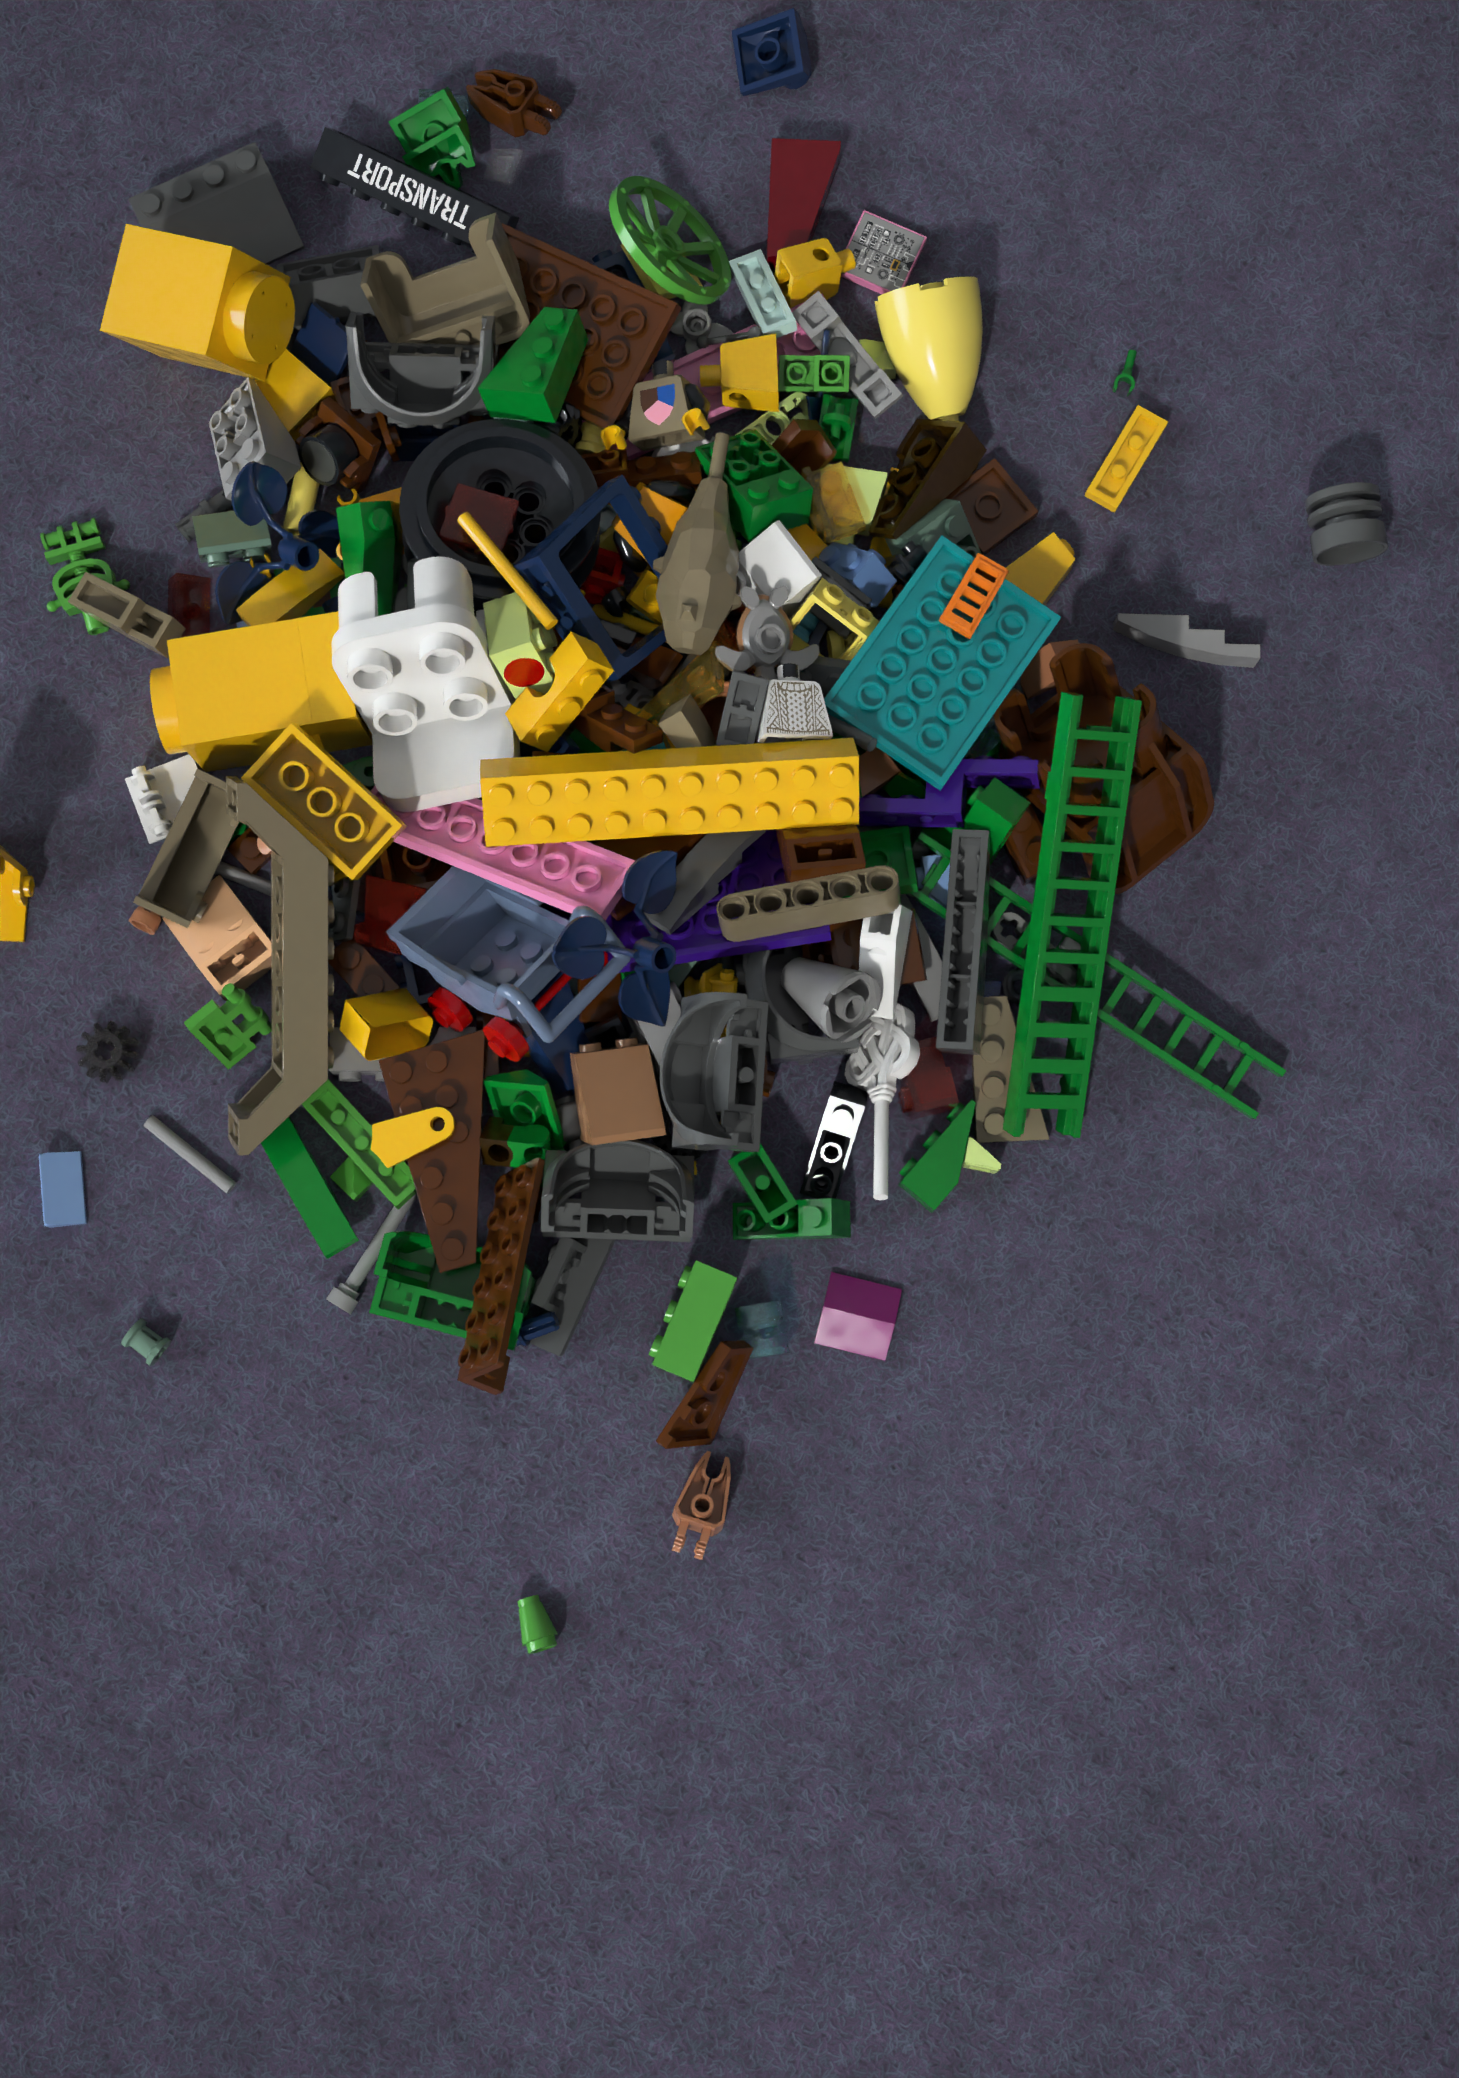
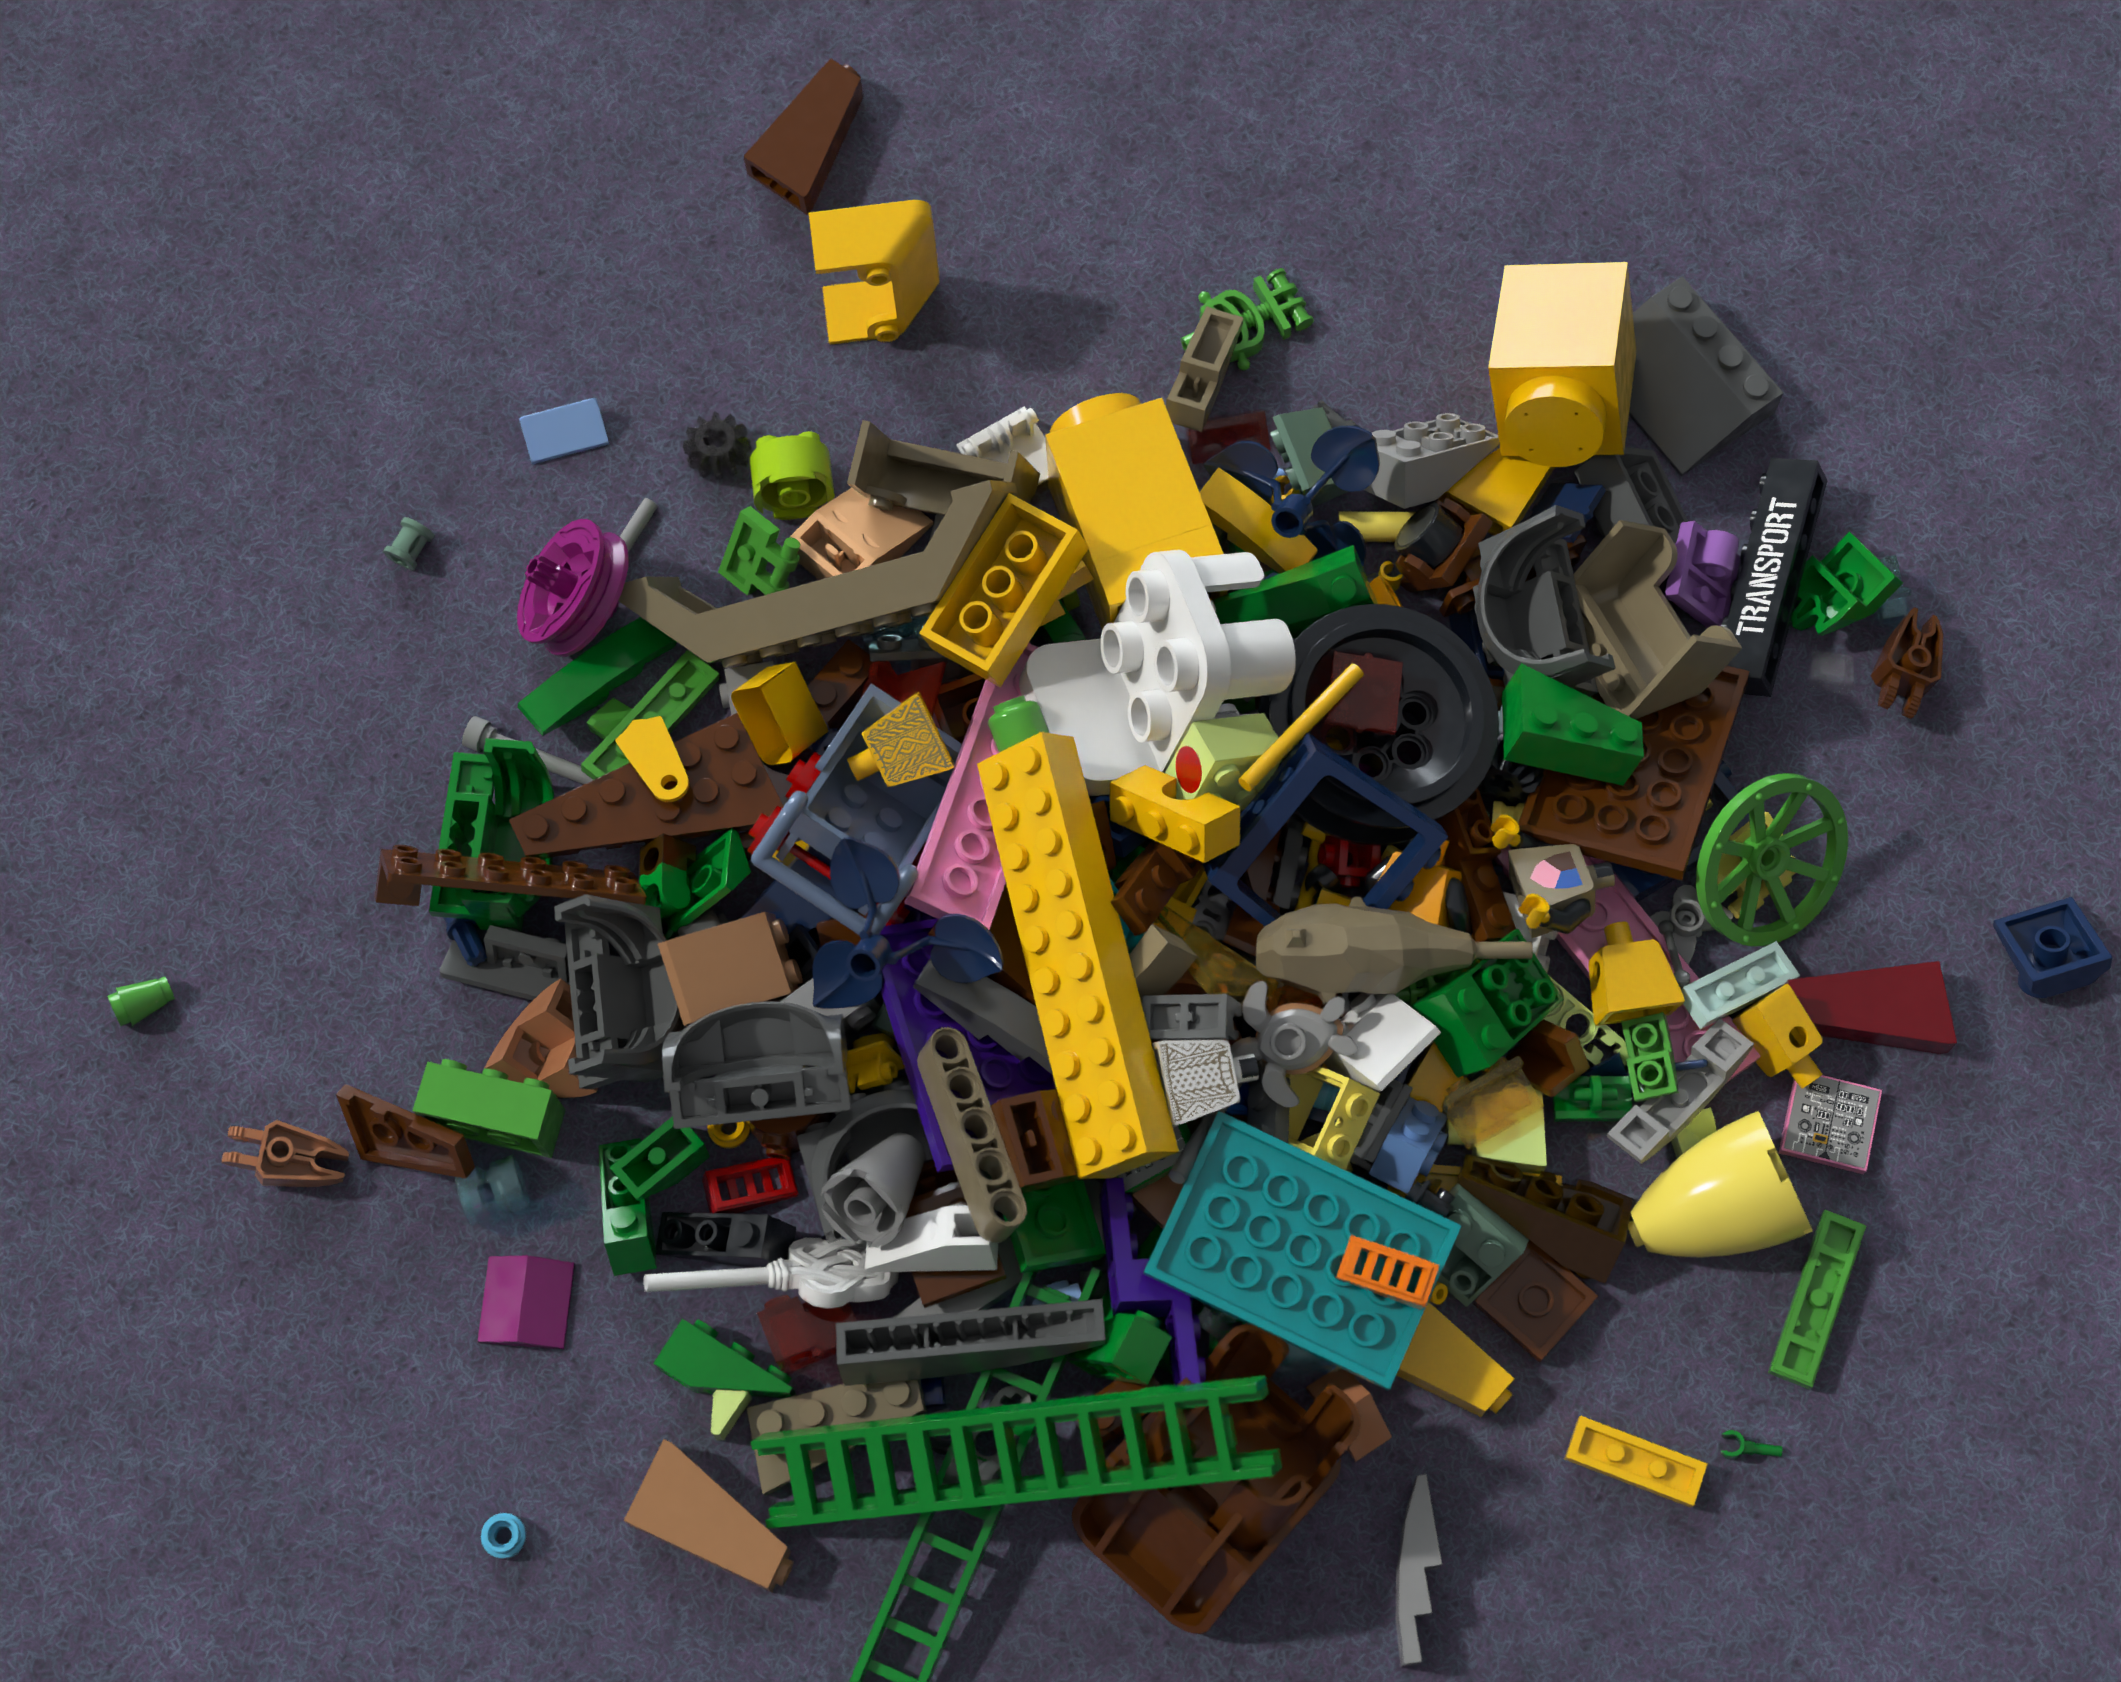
camera: 85 degrees right, 10 degrees down
(154, 987) = (791, 475): none -> lime brick
(250, 1177) = (572, 587): none -> magenta wheel
(397, 234) = (1704, 573): none -> medium lavender plate
(448, 912) = (902, 746): none -> yellow torso
(452, 812) = (1016, 722): none -> bright green head
(641, 1273) = (542, 1043): none -> nougat brick
(791, 1146) = (752, 1200): none -> red slope
(1024, 297) = (1817, 1299): none -> bright green plate
(1060, 1350) = (490, 1531): none -> medium azure plate
(1063, 1190) = (699, 1517): none -> medium nougat slope

